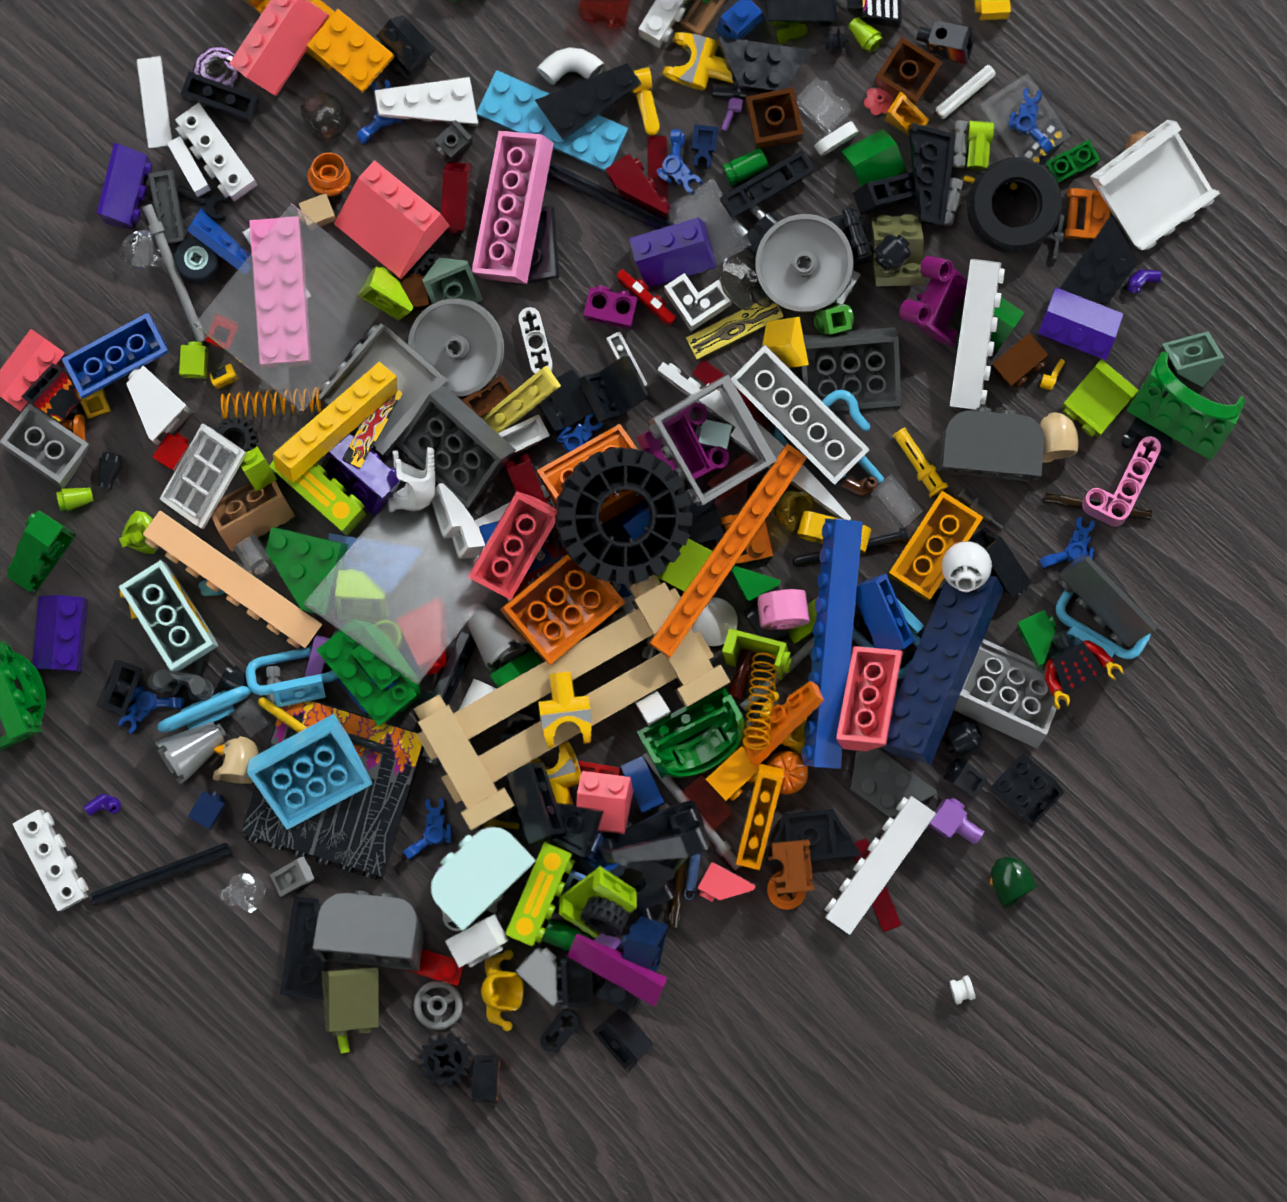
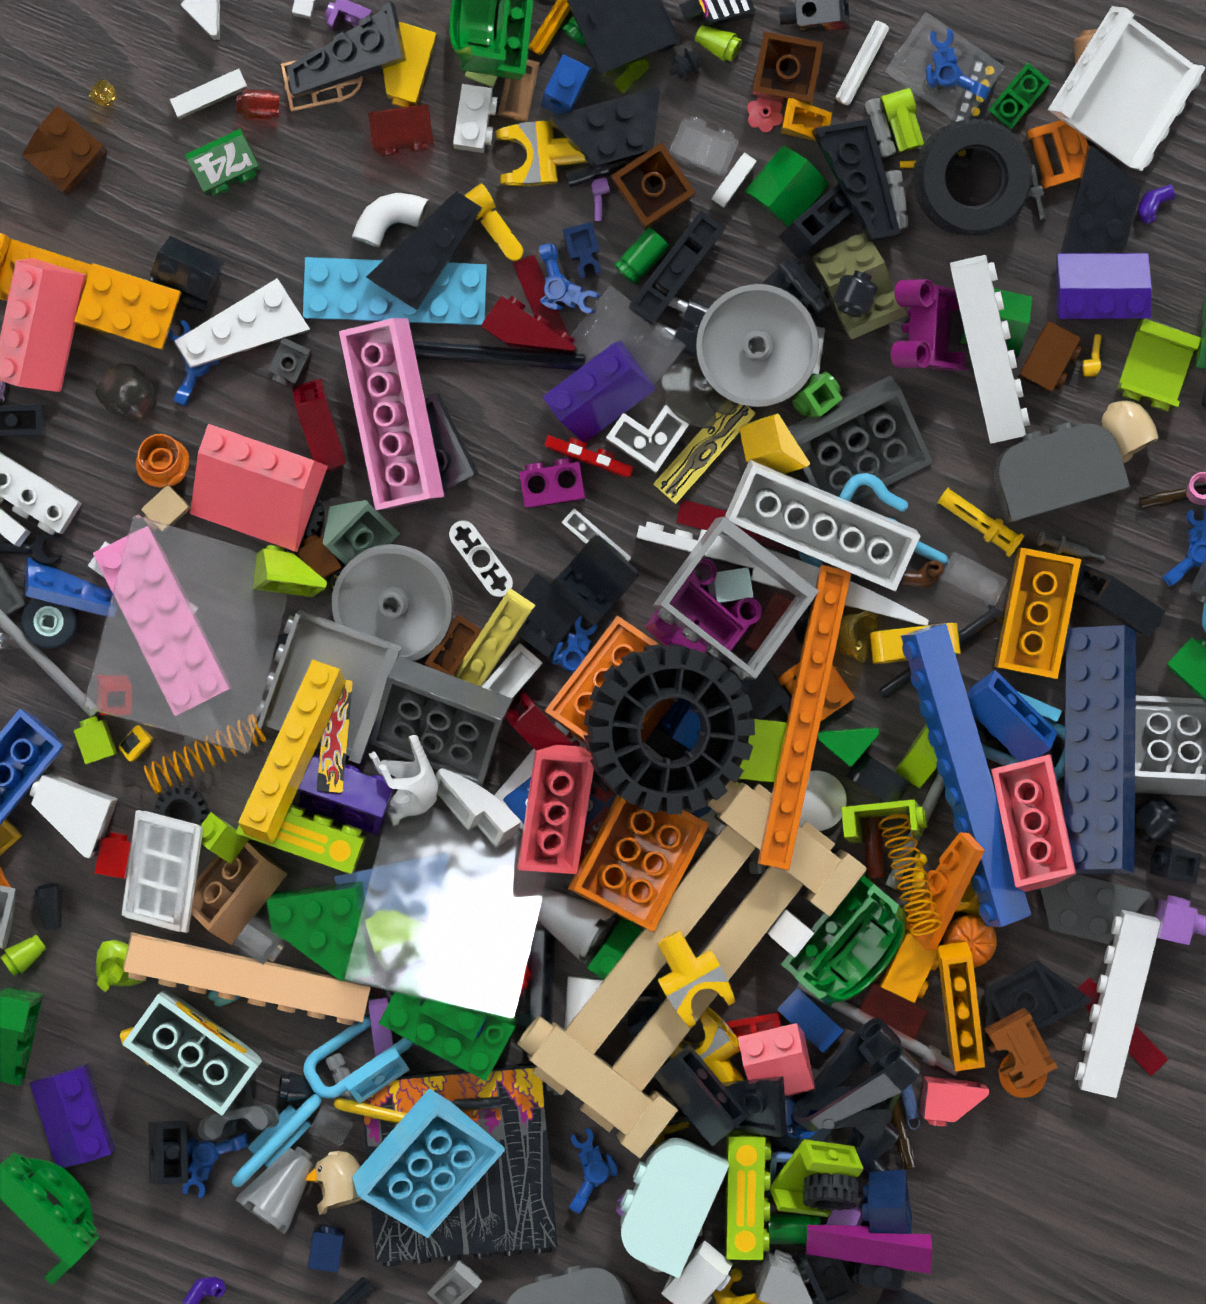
camera: 30 degrees left, 5 degrees up
(783, 609) = (894, 761): bright pink piece -> none
(966, 566) = (1086, 627): white brick -> none

